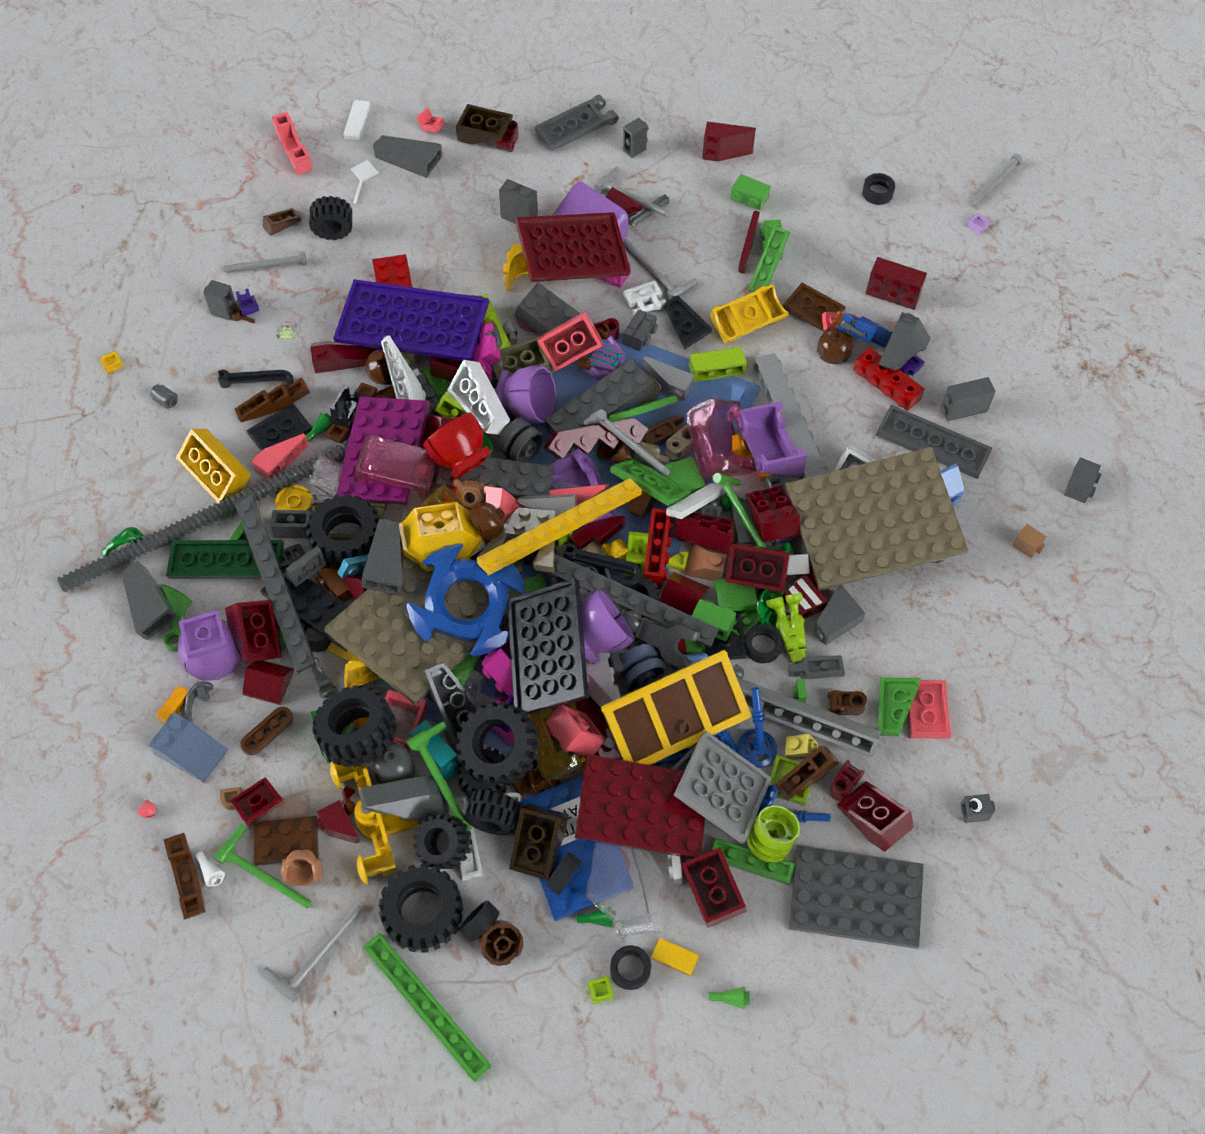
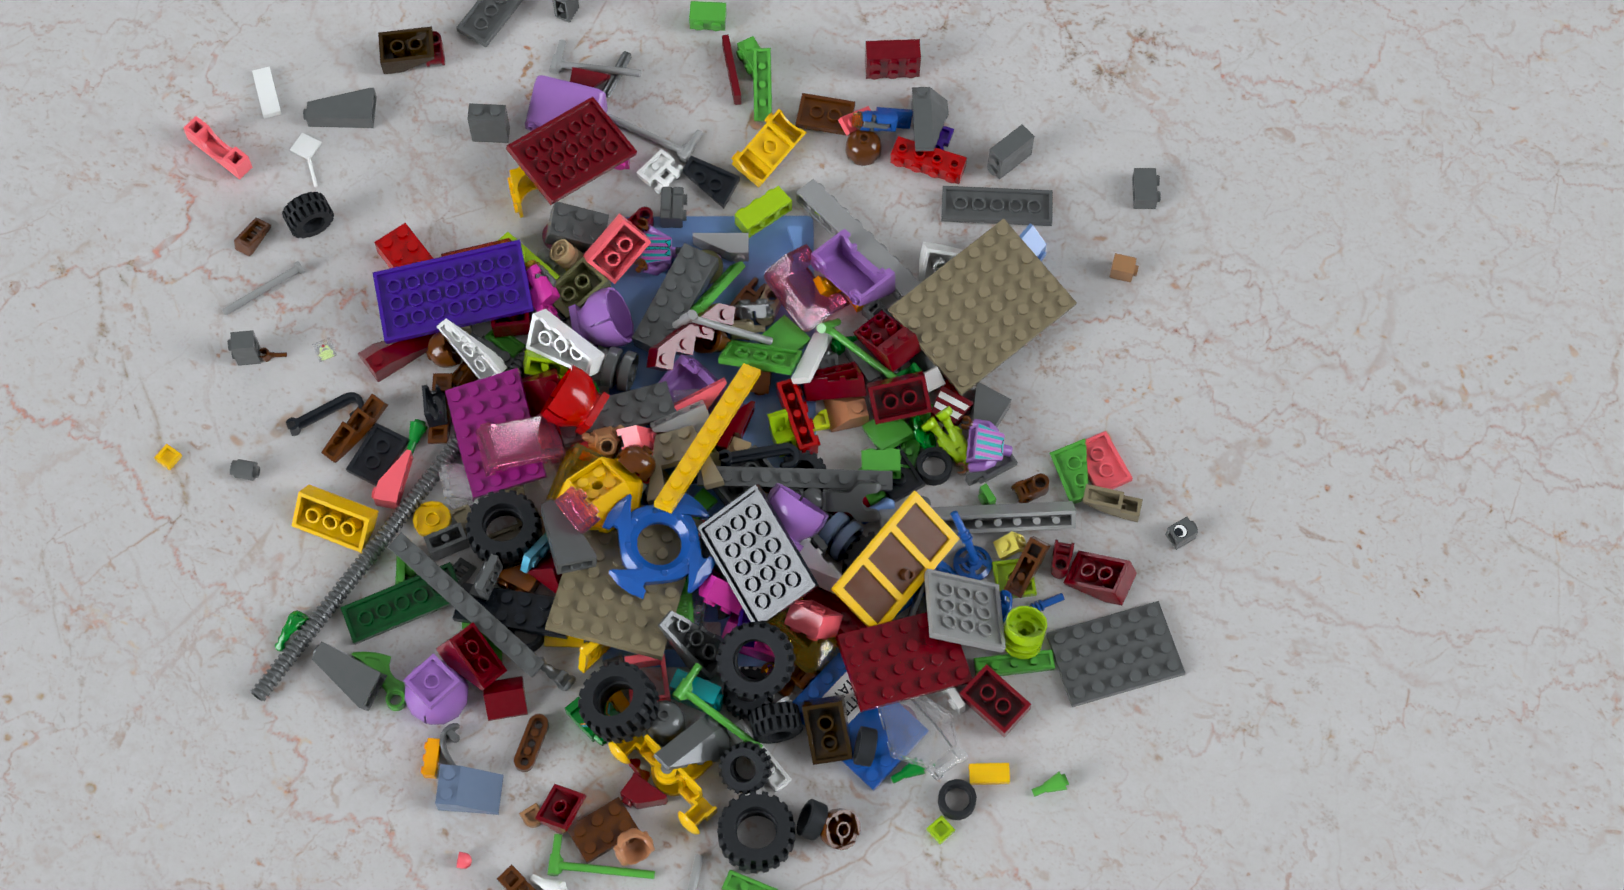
camera: 25 degrees left, 5 degrees up
(247, 303) = (270, 339): dark purple plate -> none
(406, 535) = (577, 509): none -> clear pink brick
(429, 123) = (346, 66): coral bracket -> none
(524, 329) = (565, 254): none -> tan wheel
(616, 549) = (761, 436): yellow rock -> none
(672, 439) = (747, 308): none -> dark grey hinge
(683, 593) = (841, 451): dark red slope -> none
(818, 643) = (984, 446): none -> medium lavender torso
(920, 750) = (1113, 502): none -> dark tan slope

